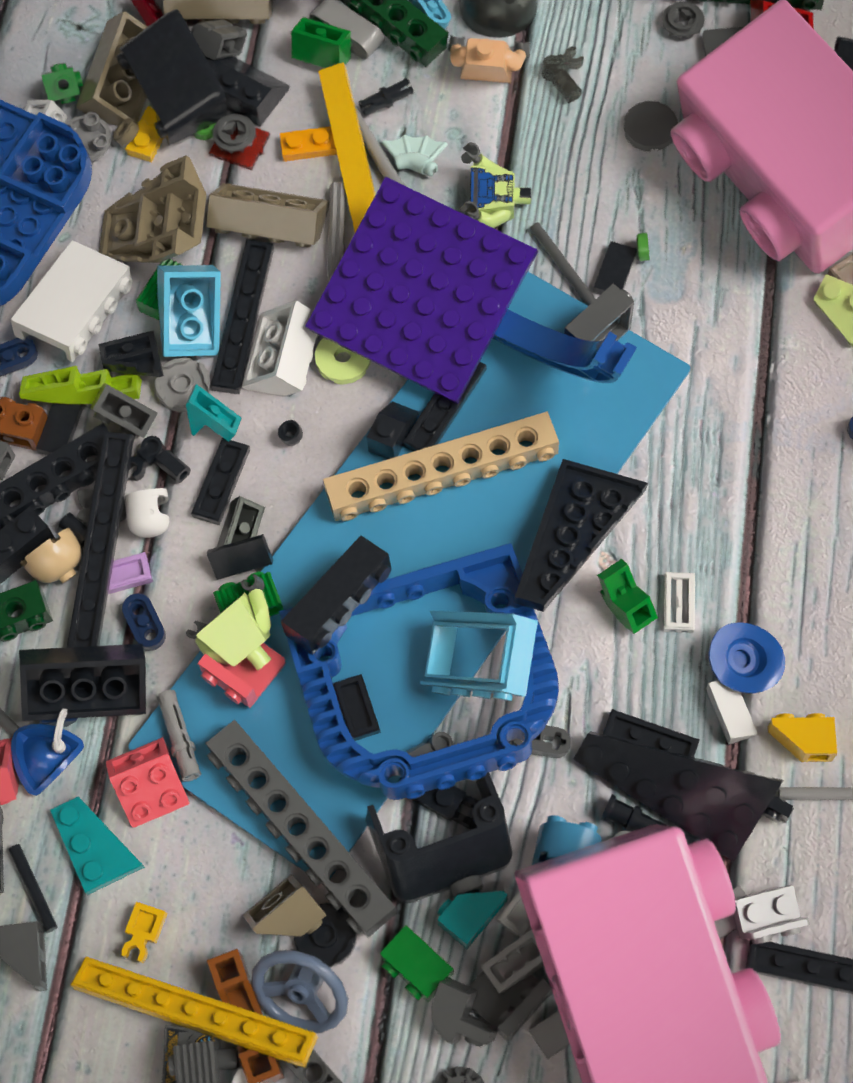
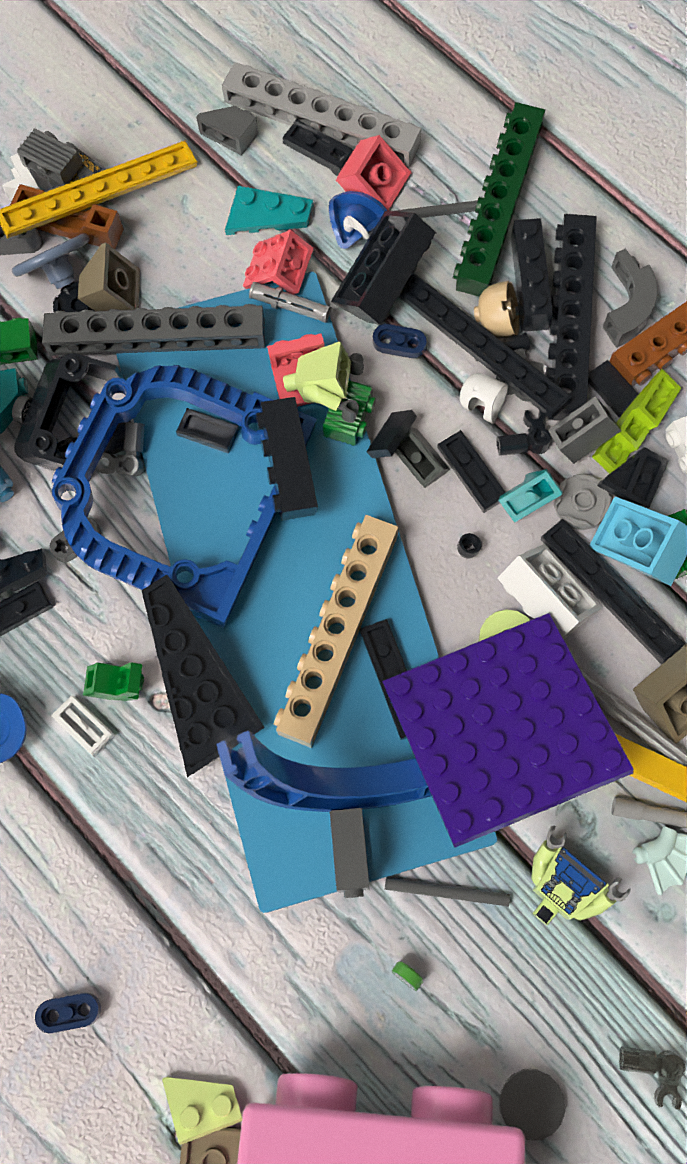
camera: 130 degrees right, 5 degrees up
(33, 888) = (270, 161): black bar -> none
(130, 573) = (448, 360): lavender tile -> none
(143, 926) = (182, 204): yellow plate -> none
(390, 430) = (404, 618): black slope -> none
(515, 658) = (98, 496): medium azure window -> none
(615, 267) = (407, 933): black tile -> none

